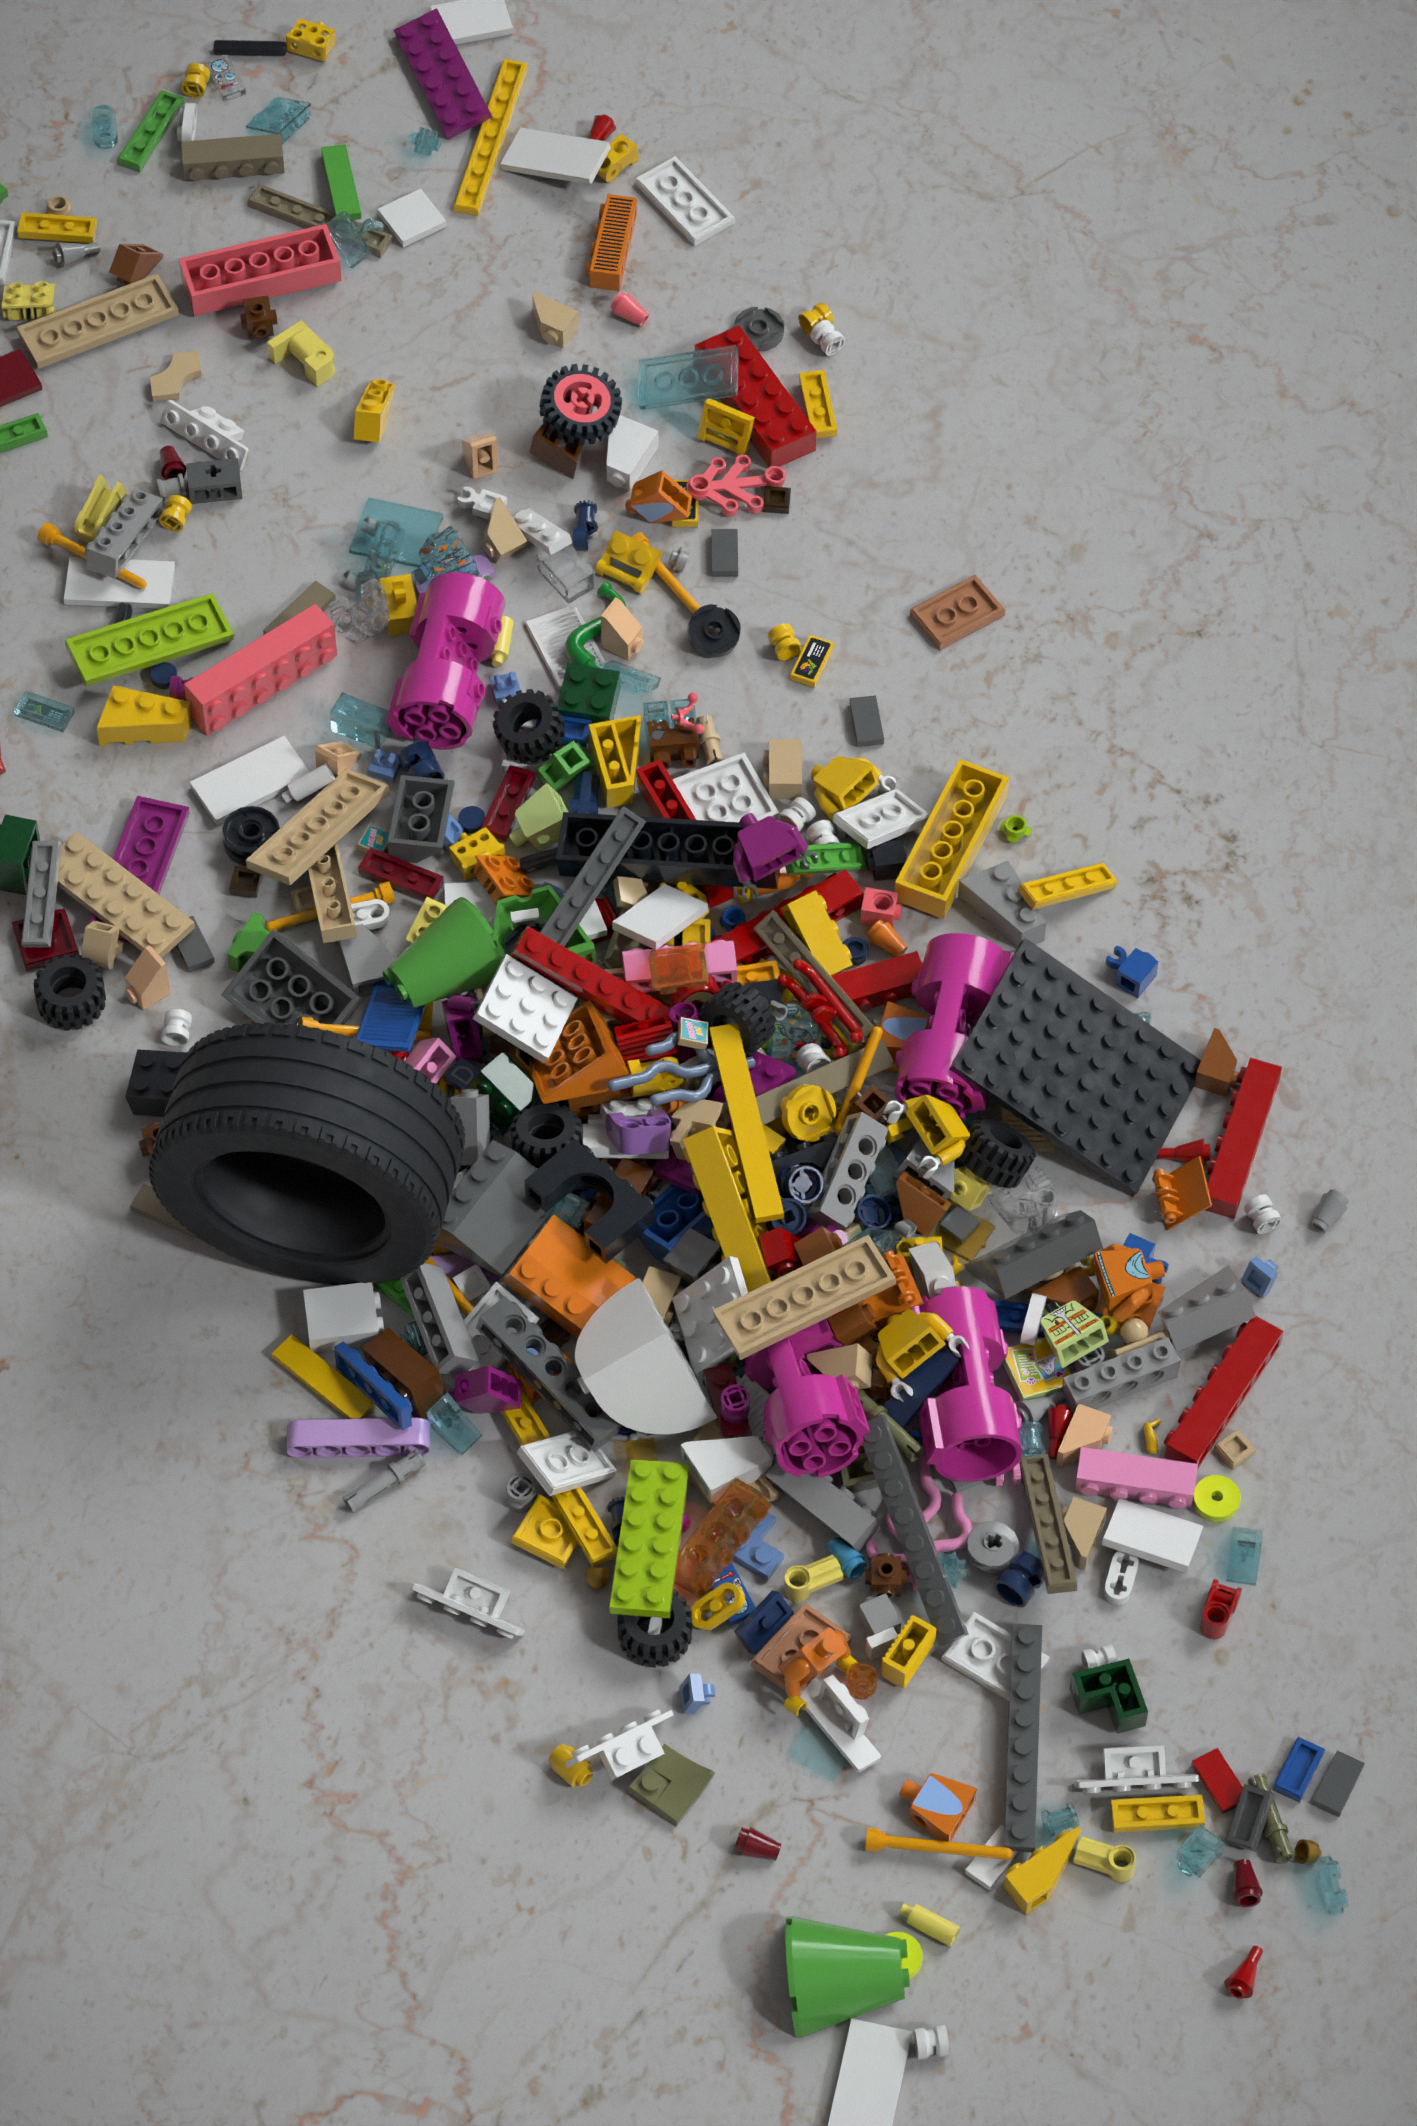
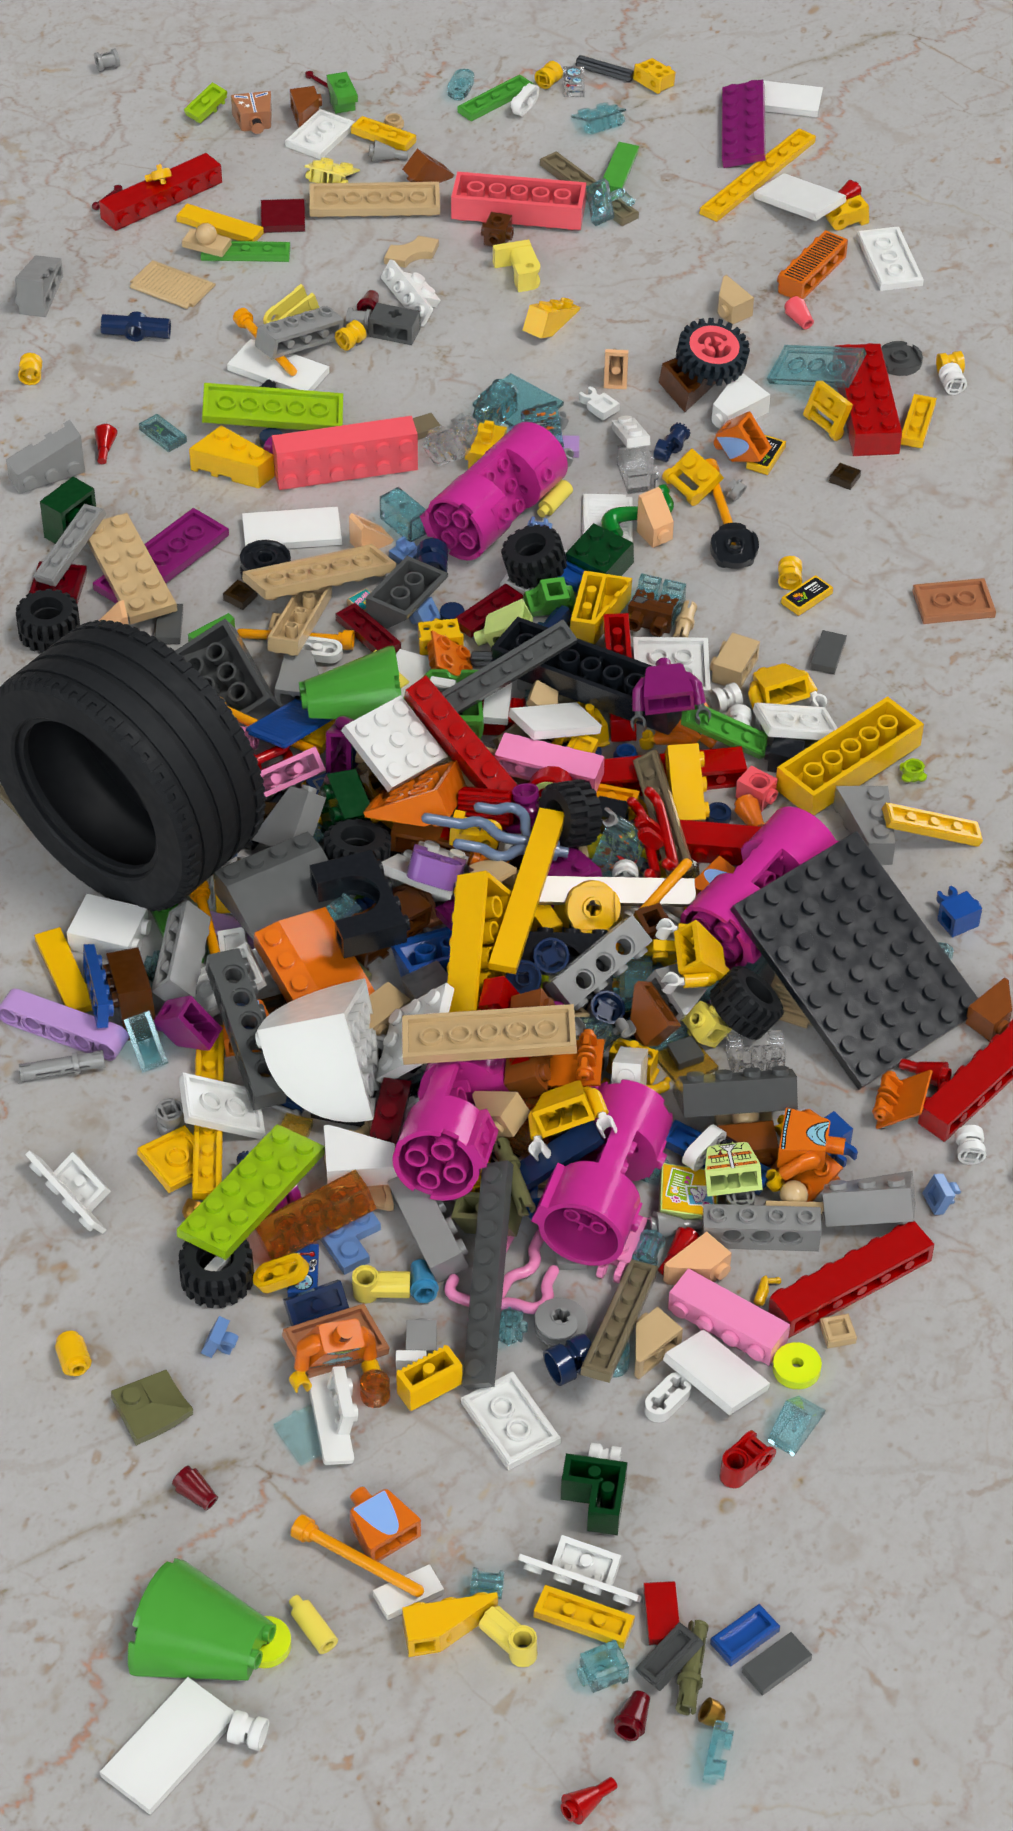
camera: 25 degrees right, 10 degrees down
(101, 944) = (91, 592): tan brick -> none
(232, 157) = (545, 128): dark tan brick -> none
(309, 783) = (334, 543): white cylinder -> none
(412, 217) = (662, 206): white tile -> none
(425, 141) = (702, 159): clear light blue gear -> none
(502, 533) = (598, 425): tan slope -> none
(627, 1751) = (124, 1356): white bracket -> none
(641, 680) = (652, 561): clear light blue plate -> none
(679, 968) = (540, 753): clear orange slope -> none
(680, 713) = (674, 603): coral piece -> none
(692, 1033) = (522, 807): tile -> none
(724, 552) = (778, 498): dark grey tile -> none
(733, 485) = (812, 451): coral plant -> none
(738, 1409) = (390, 1110): magenta wheel -> none
(885, 1575) = (448, 1307): reddish brown brick -> none
(1023, 1738) = (492, 1497): dark grey plate -> none

